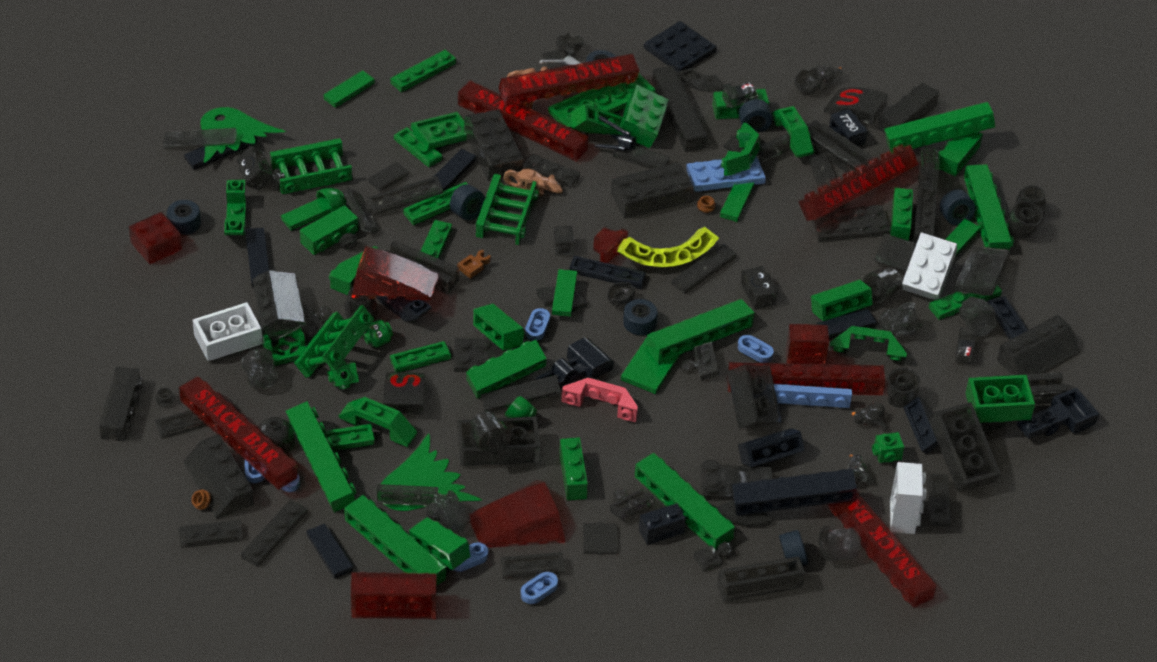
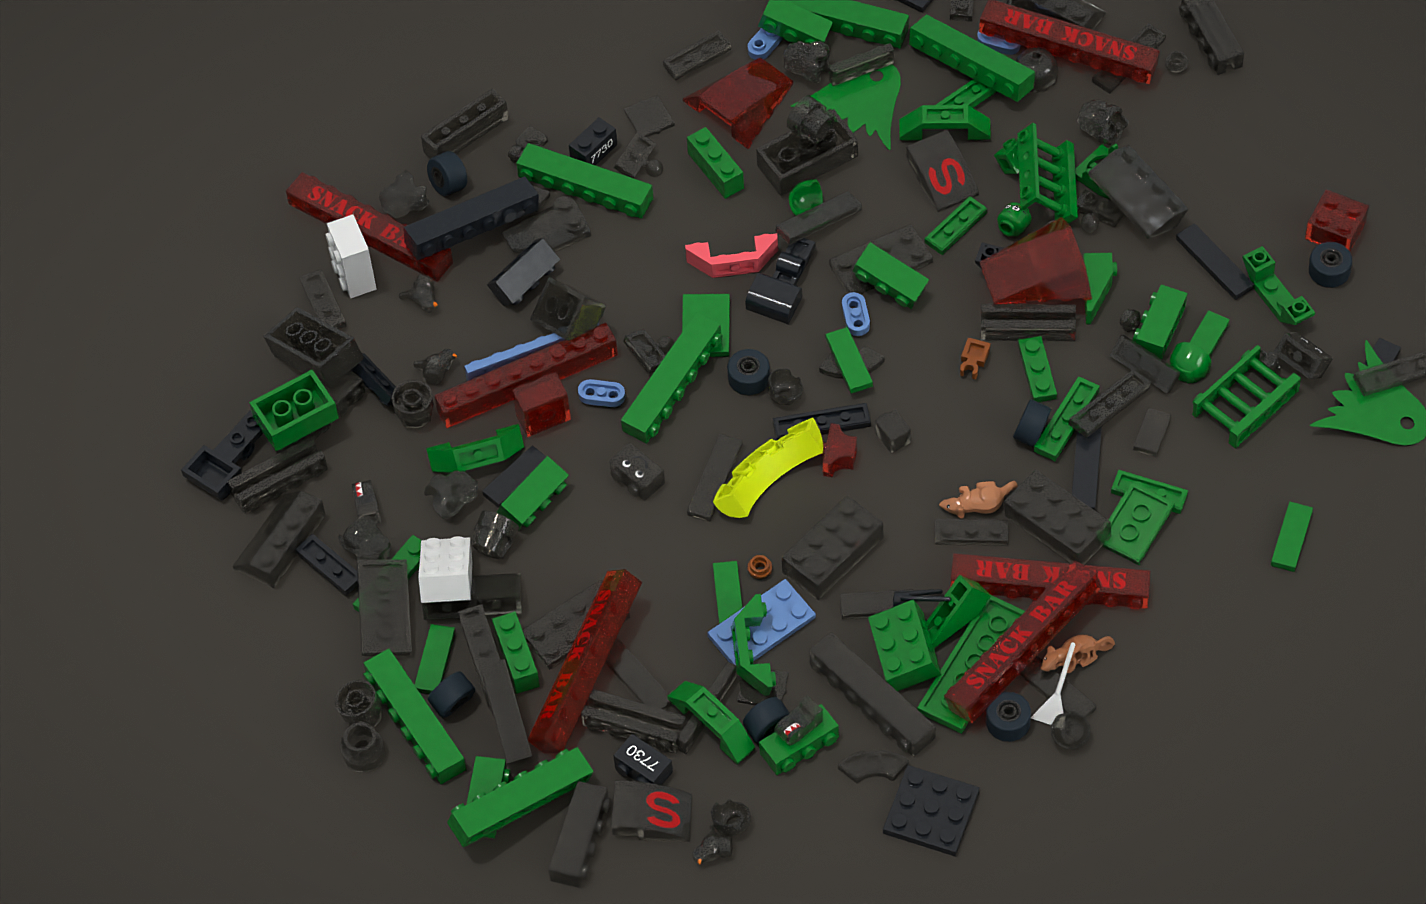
camera: 160 degrees right, 10 degrees up
(227, 331) = (1171, 143): white brick -> none
(423, 70) = (1224, 610): green plate -> none
(492, 199) = (1002, 428): green fence -> none
(506, 368) = (849, 232): green brick -> none
(538, 589) = (675, 38): medium blue plate -> none
(888, 447) = (399, 329): green brick -> none

